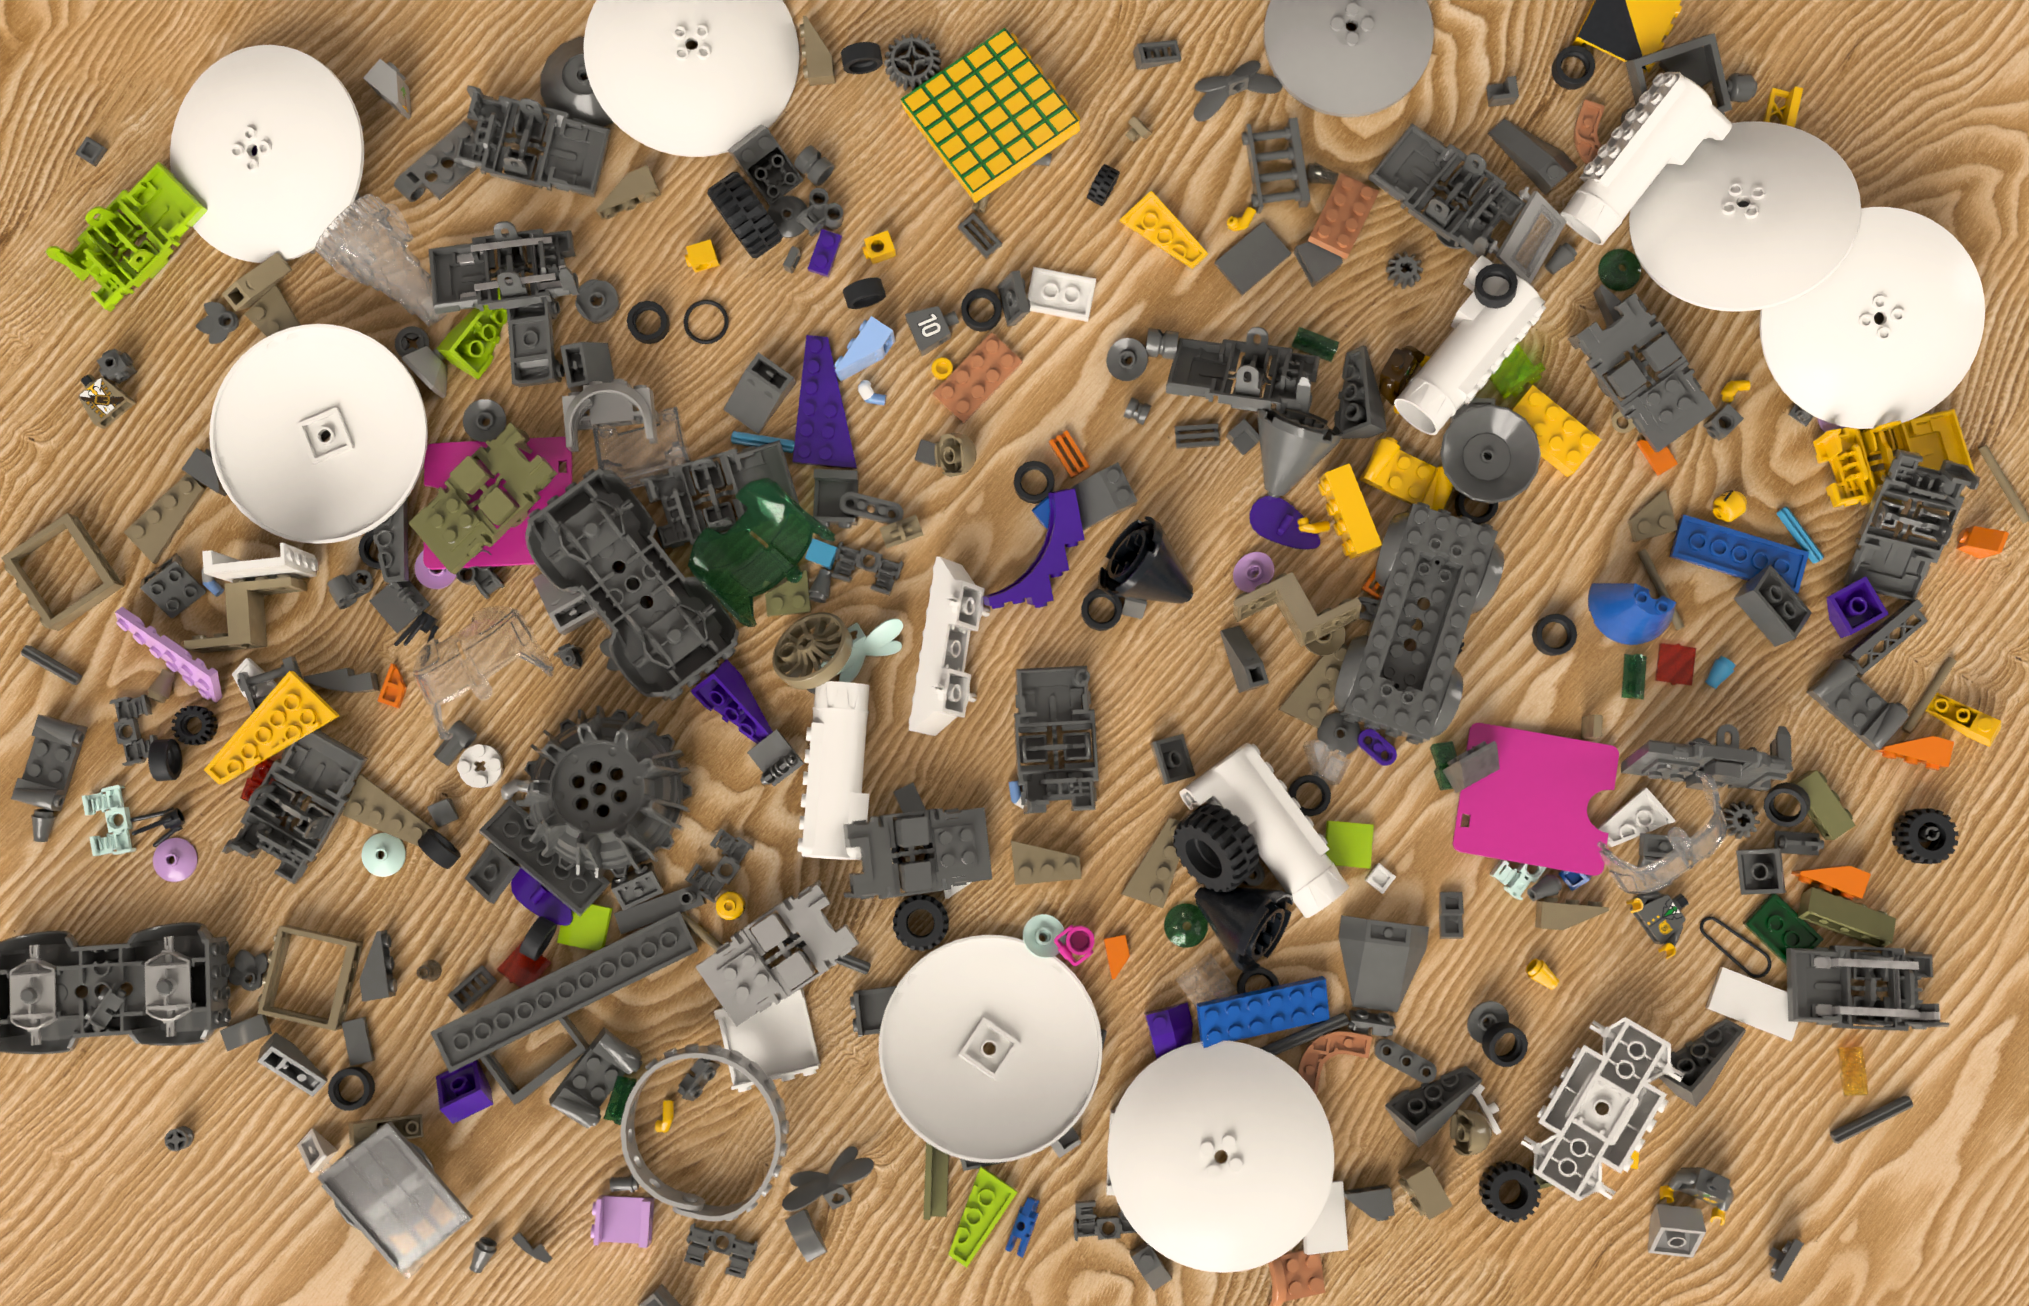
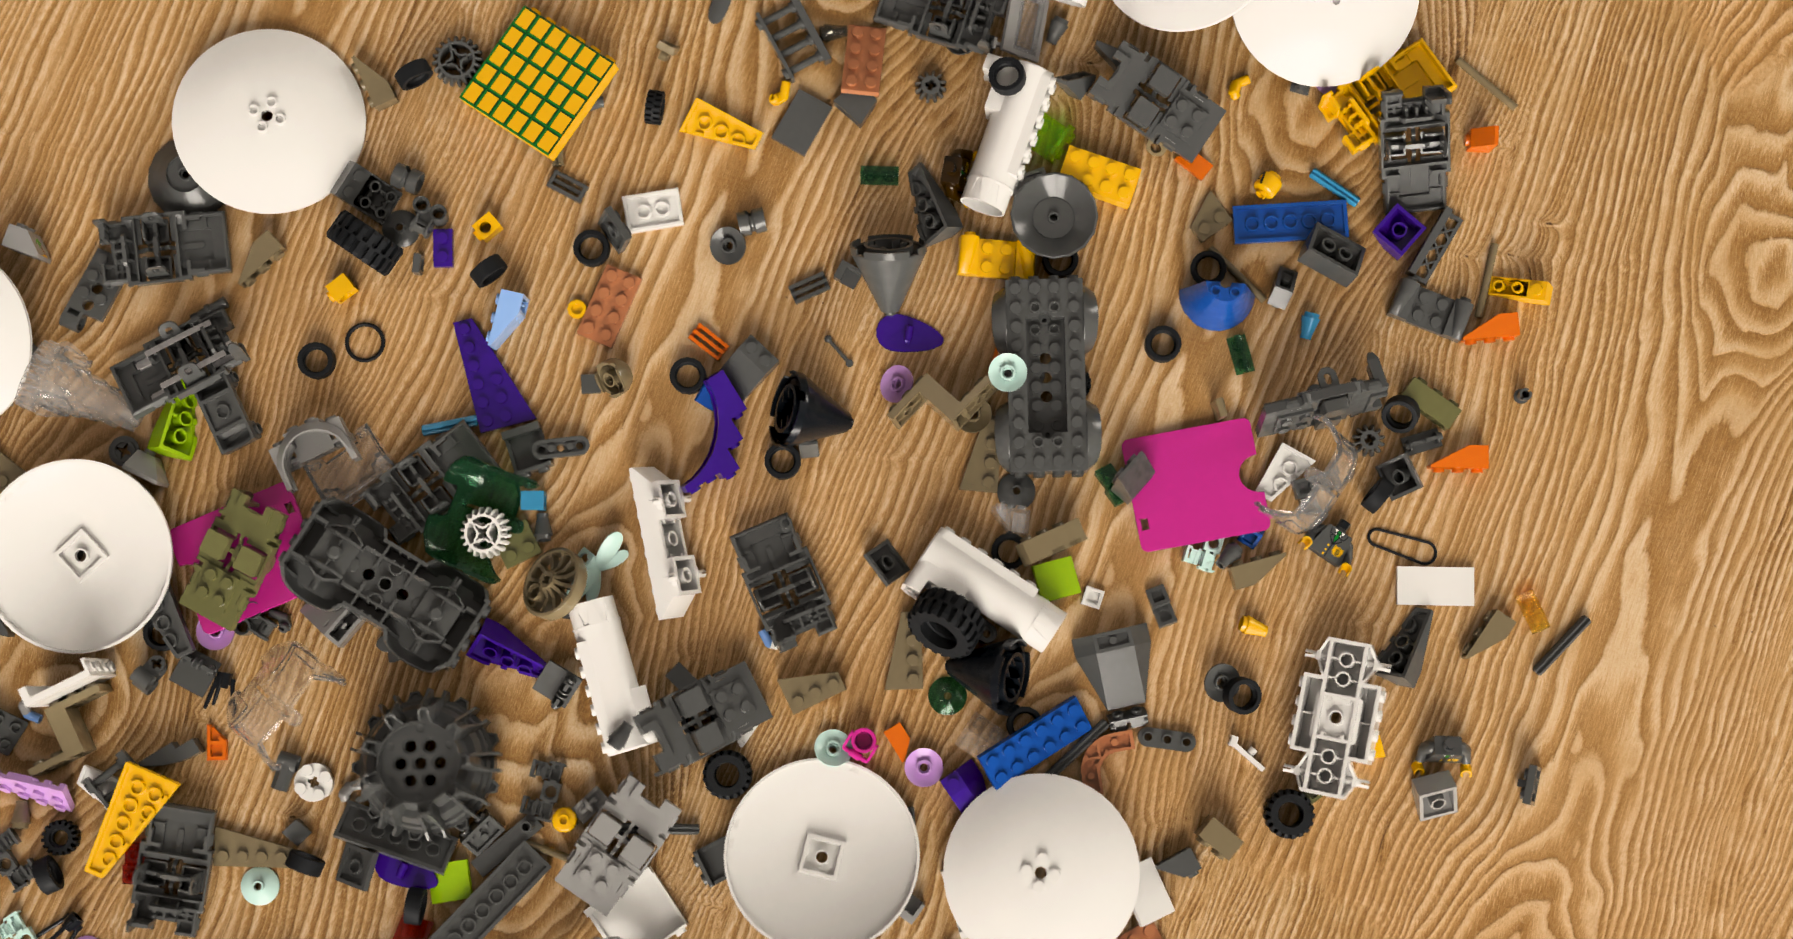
camera: 20 degrees left, 0 degrees up
(477, 413) = (200, 493): dark grey dish -> none
(512, 581) = (283, 619): none -> dark grey arm
(559, 226) = (209, 308): none -> dark grey pin
(570, 655) = (354, 662): dark grey hinge -> none
(586, 363) = (278, 414): dark grey slope -> none
(596, 313) = (272, 368): dark grey plate -> none
(743, 574) = (475, 541): none -> white gear
(759, 393) = (432, 386): dark grey slope -> none
(763, 899) = (589, 804): none -> light grey hips
(823, 839) = (620, 736): none -> dark grey cone
(850, 557) = (590, 493): dark grey piece -> none
(868, 394) = (523, 353): arm -> none
(901, 531) = (592, 457): dark tan hips -> none
(930, 327) = (554, 278): dark grey torso -> none
(1133, 1005) = (933, 772): none -> lavender dish
(1140, 415) = (756, 287): dark grey wheel -> none
(1205, 369) = (794, 228): dark grey piece -> none
(1210, 531) = (849, 363): none -> dark grey hinge
(1244, 660) = (915, 459): dark grey slope -> none
(1314, 528) = (932, 329): yellow arm -> none
(1349, 512) = (957, 305): yellow brick -> none
(1358, 803) = (1050, 542): none -> dark tan wedge
(1376, 746) = (1050, 490): dark purple plate -> none
(1383, 592) = (1003, 363): none -> light aqua dish
(1428, 1108) = (1199, 770): dark grey wedge -> none
(1470, 1132) = (1239, 777): dark tan cylinder -> none
(1562, 323) = (1076, 83): none -> dark grey slope
(1612, 276) = (1108, 30): clear green dish -> none
(1651, 571) = (1223, 266): none -> black tyre
(1675, 664) = (1271, 331): clear red piece -> none
(1705, 622) = (1282, 288): none -> dark grey slope
(1729, 416) = (1242, 111): dark grey brick -> none
(1730, 882) = (1377, 495): none -> black tyre
(1780, 927) = (1436, 518): dark green tile -> none
(1804, 1075) = (1494, 629): none -> dark tan slope
(1822, 988) = (1482, 554): dark grey piece -> none
(1847, 917) = (1482, 488): olive brick -> none
(1907, 836) = (1507, 403): black tyre -> none

